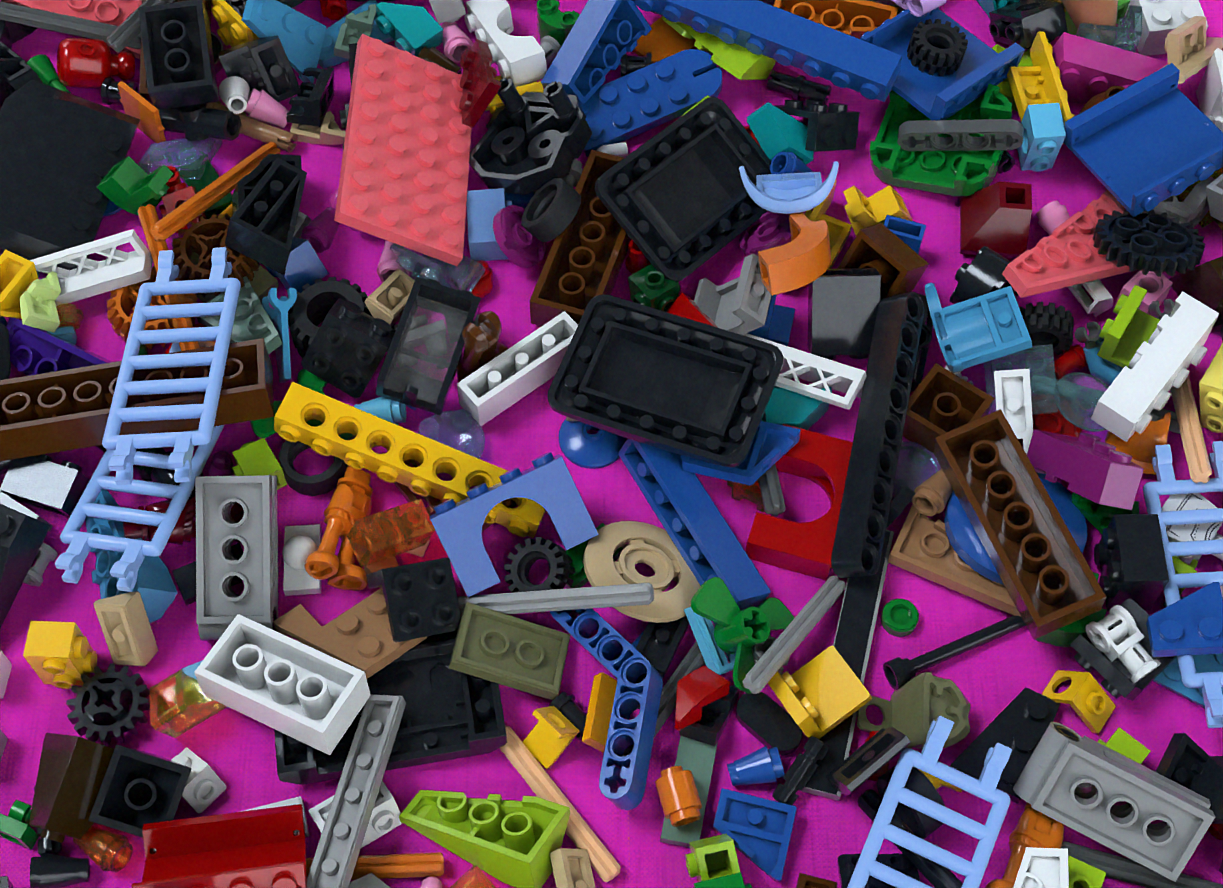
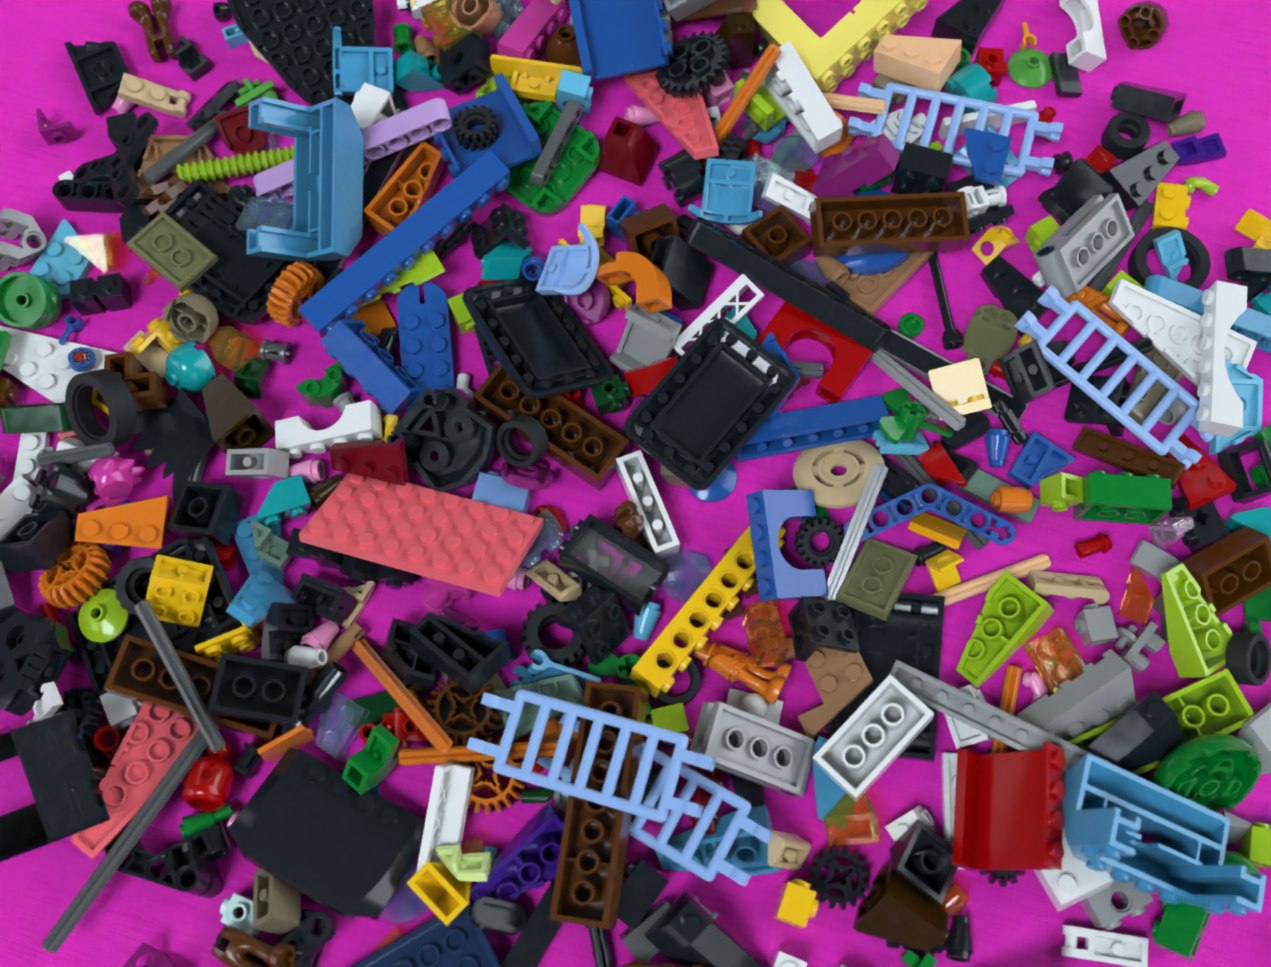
camera: 70 degrees left, 10 degrees up
(1116, 296) = (744, 95): none -> orange axle

